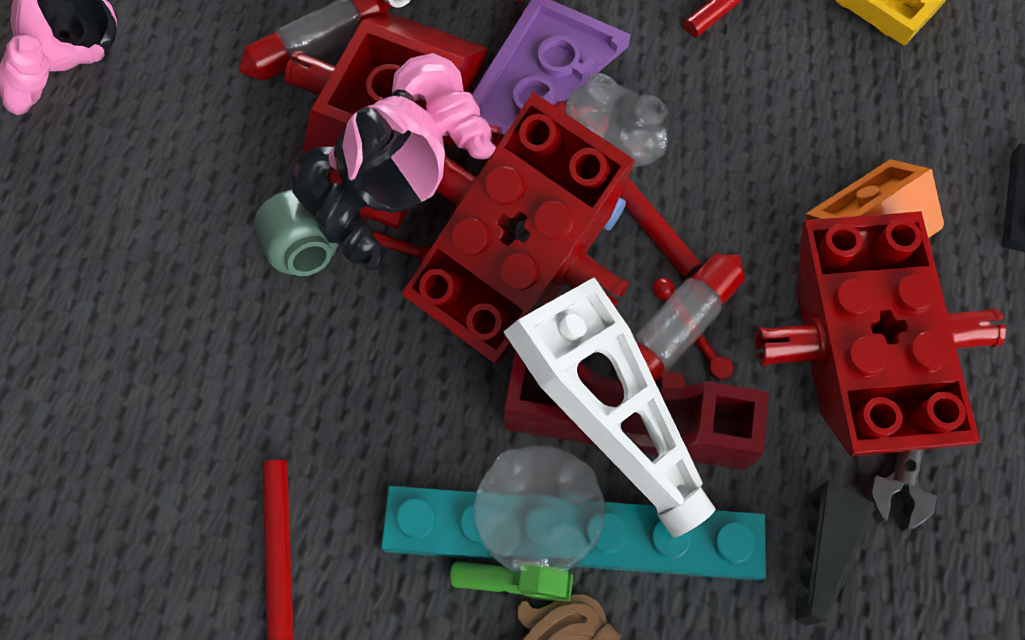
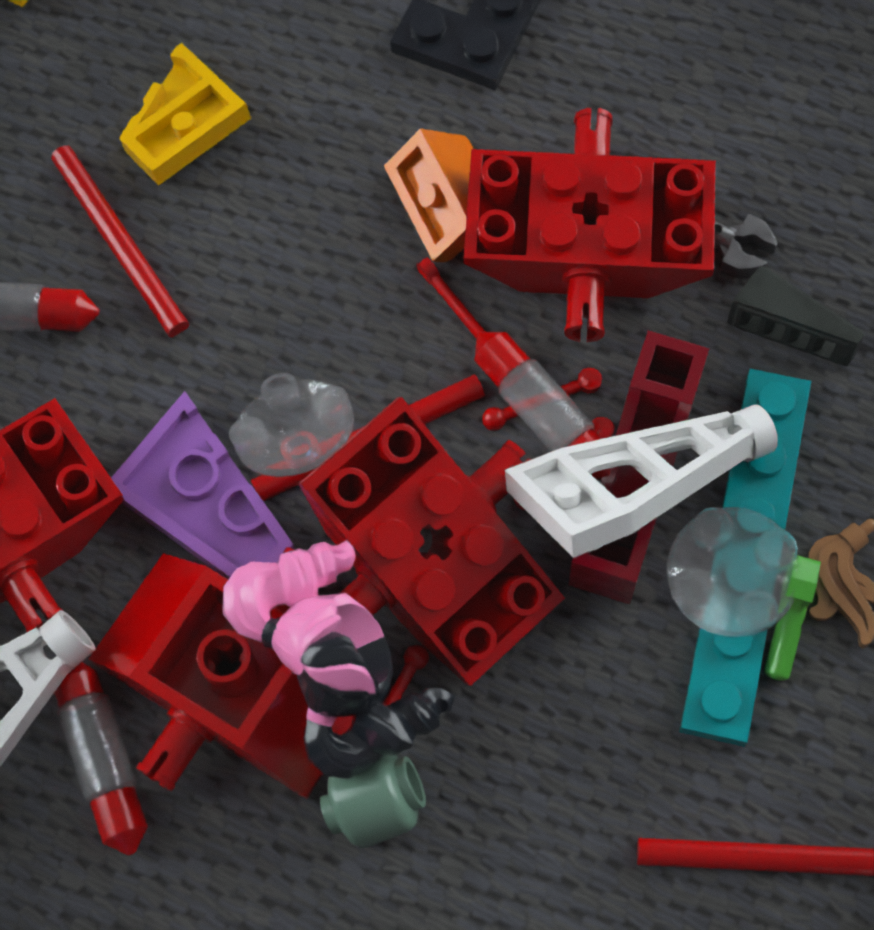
camera: 75 degrees left, 0 degrees up
(790, 218) = (432, 276): none -> red hinge

